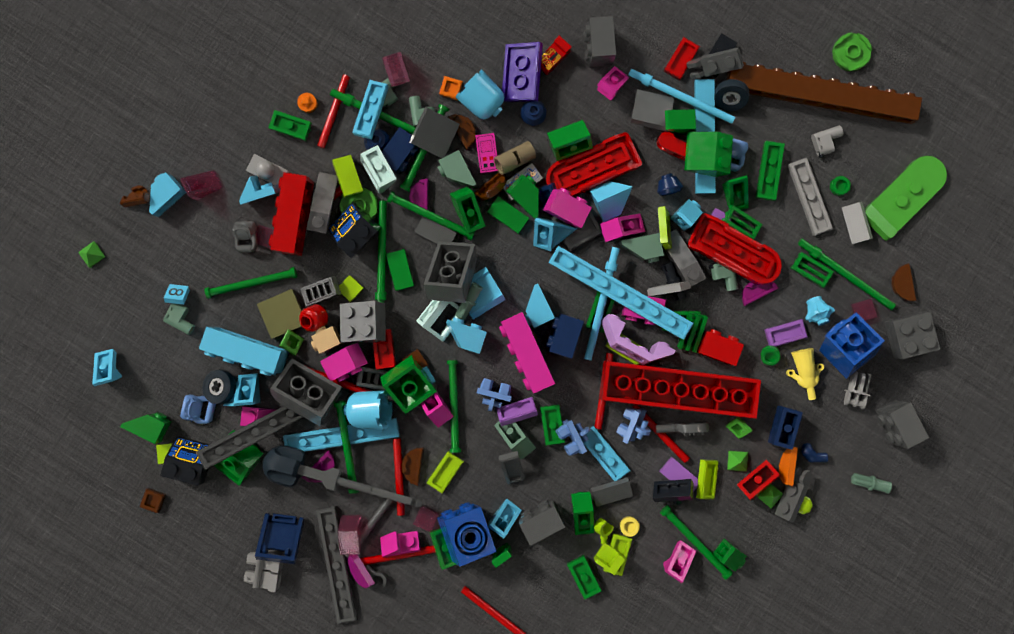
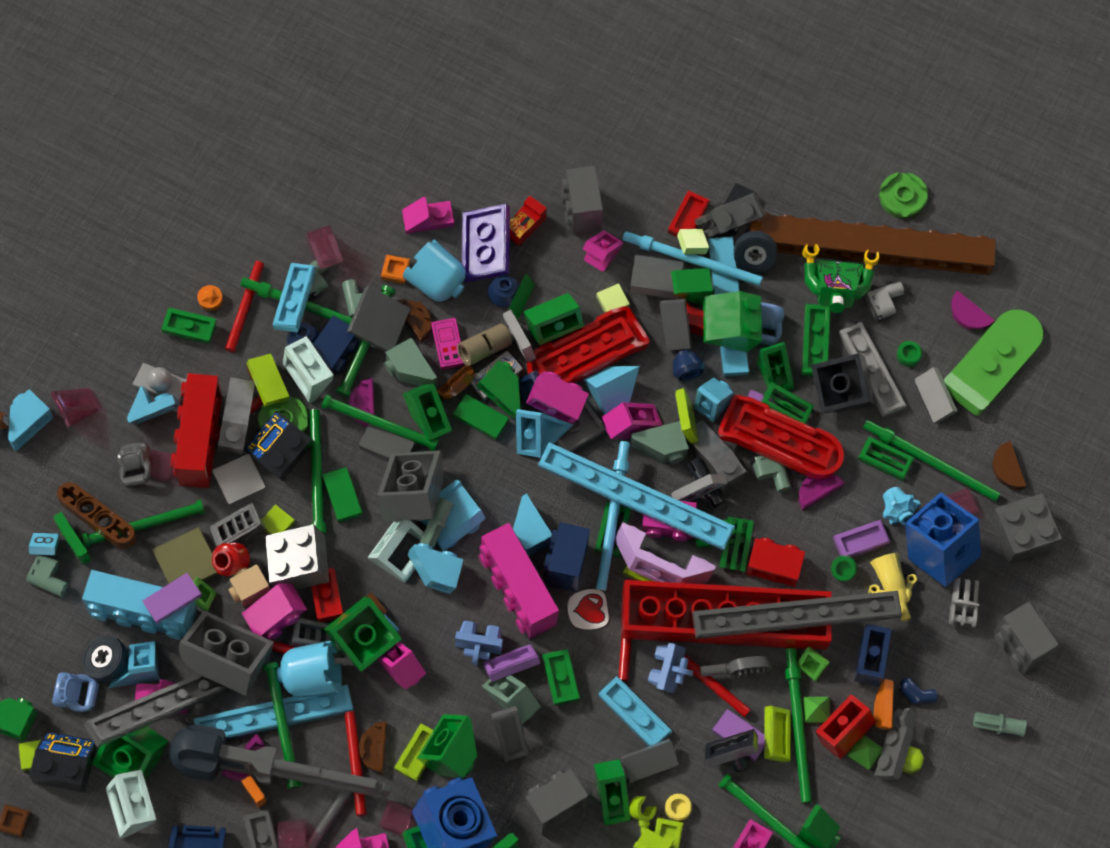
camera: 10 degrees left, 20 degrees down
(197, 291) = (71, 538): none -> green tile
(215, 275) = (94, 517): none -> reddish brown beam
(234, 498) = (130, 803): none -> light aqua tile
(265, 355) = (171, 598): none -> medium lavender tile
(323, 251) = (238, 478): none -> white sticker
(324, 495) = (254, 791): none -> orange tile
(454, 406) = (427, 683): green bar -> none
(466, 477) = (450, 747): none -> green slope
(478, 45) = (425, 217): none -> dark pink slope
(504, 518) = (505, 806): medium azure slope -> none
(541, 153) = (519, 336): none -> light grey tile
(545, 120) = (521, 296): none -> green sticker
(569, 429) = (593, 685): medium blue hips -> none
(577, 371) = (588, 609): none -> sticker
(616, 125) = (612, 298): none -> yellowish green tile
(663, 152) = (676, 324): none -> dark grey tile
(683, 82) = (693, 241): none -> yellowish green tile
(723, 434) = (793, 675): none -> green bar
(733, 397) = (796, 614): none -> dark grey tile
(787, 211) = (843, 384): none -> black slope
(793, 125) = (838, 282): none -> green torso
(890, 156) = (968, 314): none -> magenta tile

